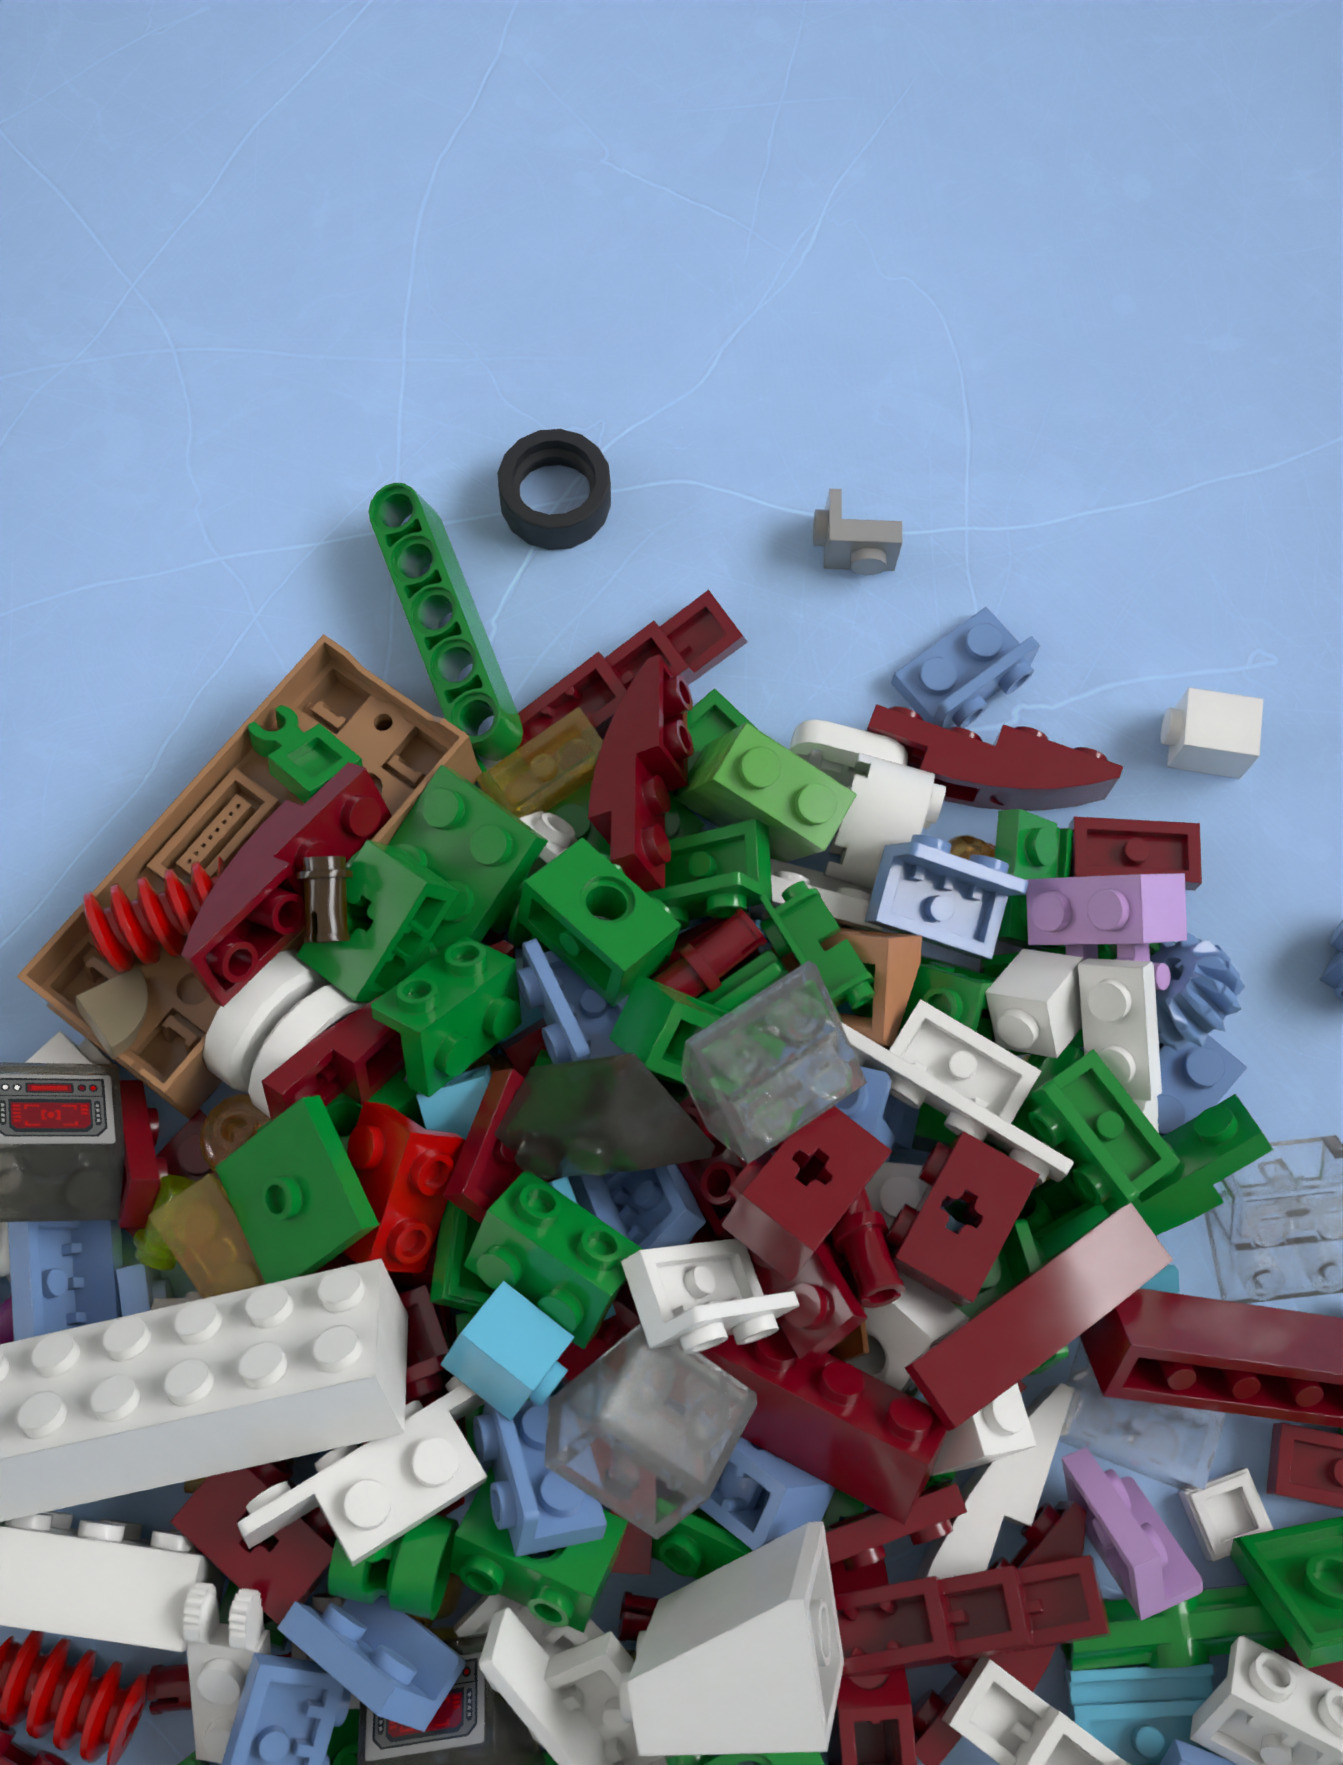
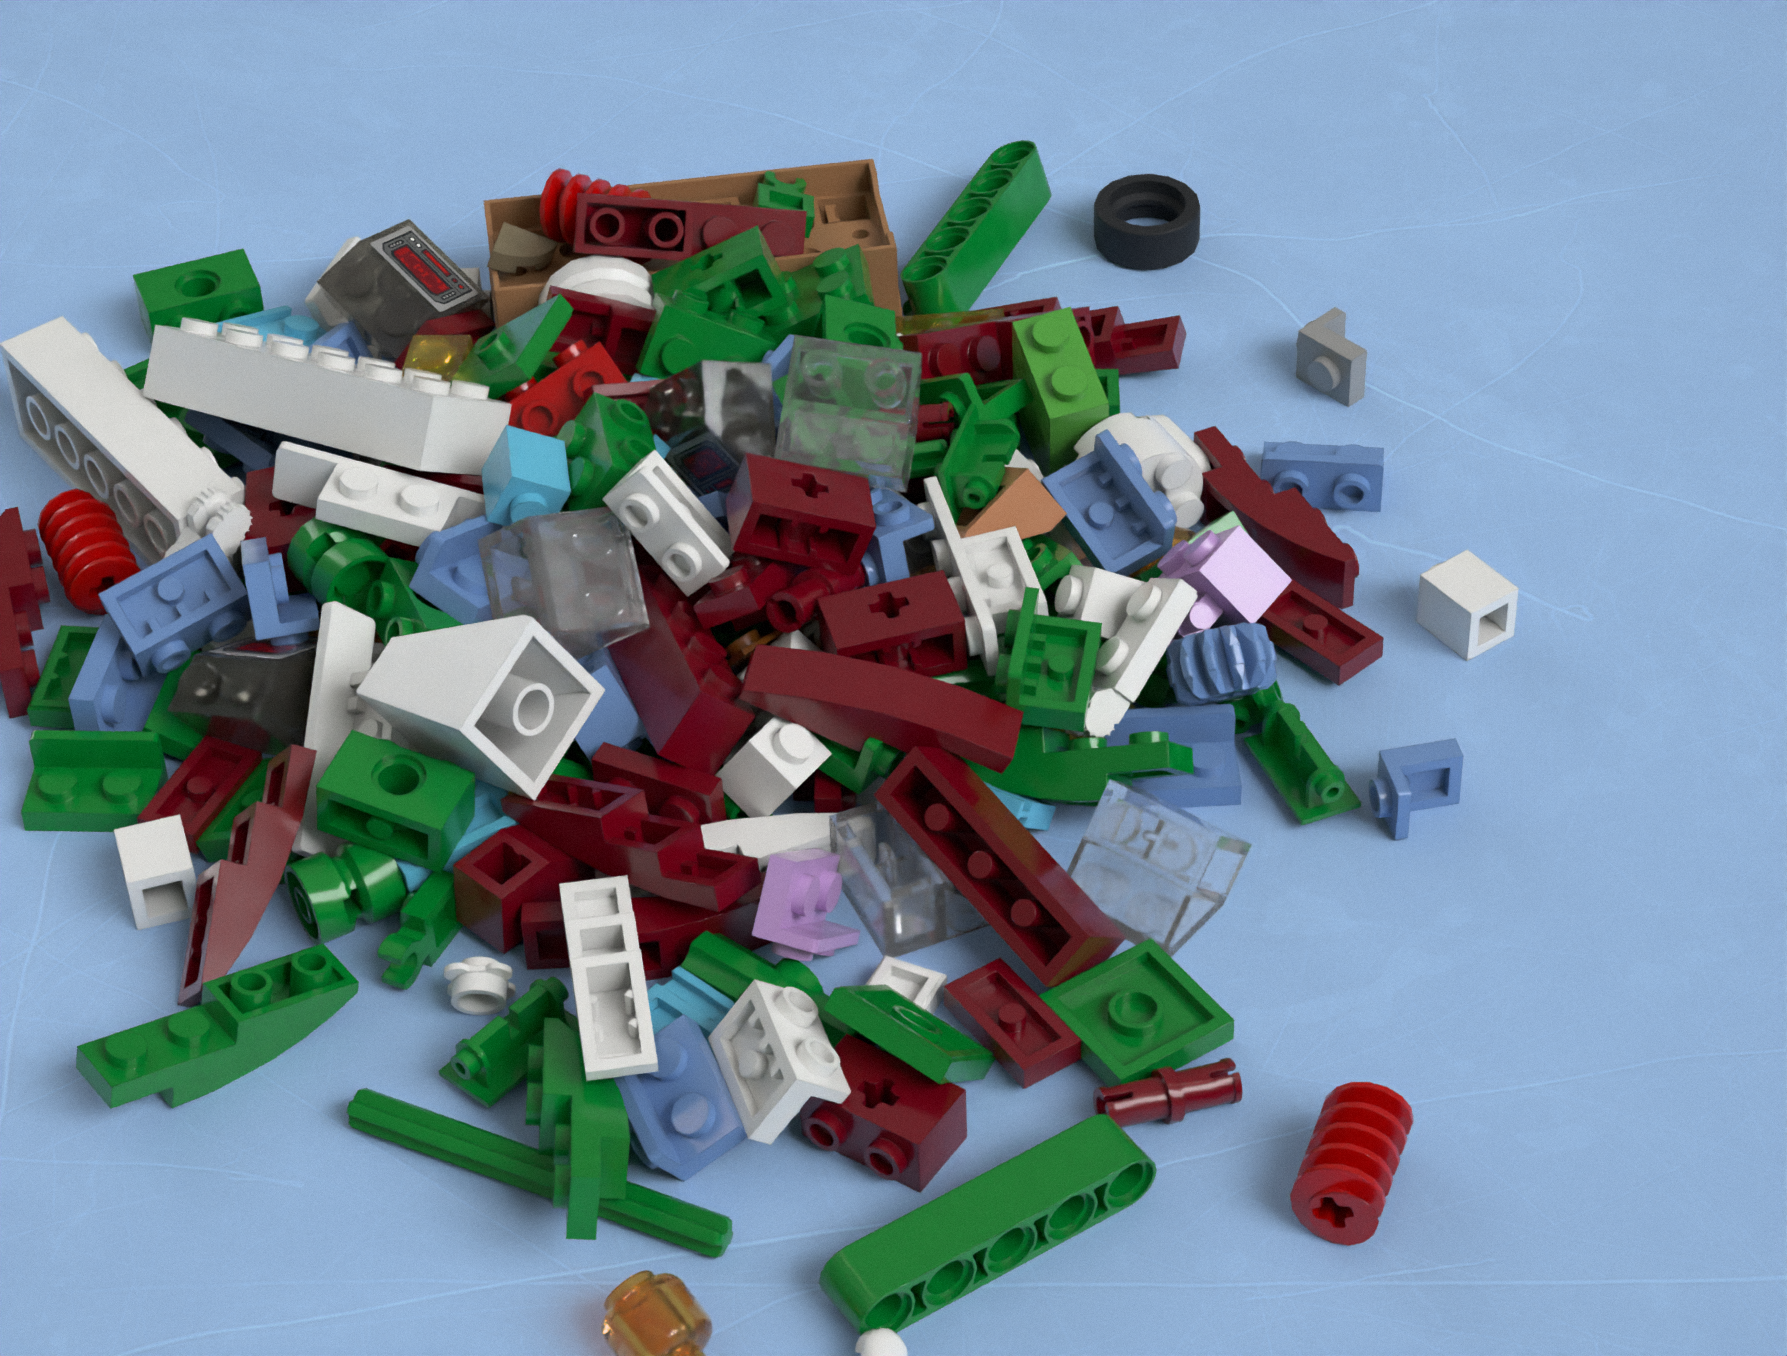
camera: 50 degrees right, 30 degrees down
(325, 898) = (689, 241): dark brown pin -> none
(1282, 1015) = (1299, 766): none -> green hinge

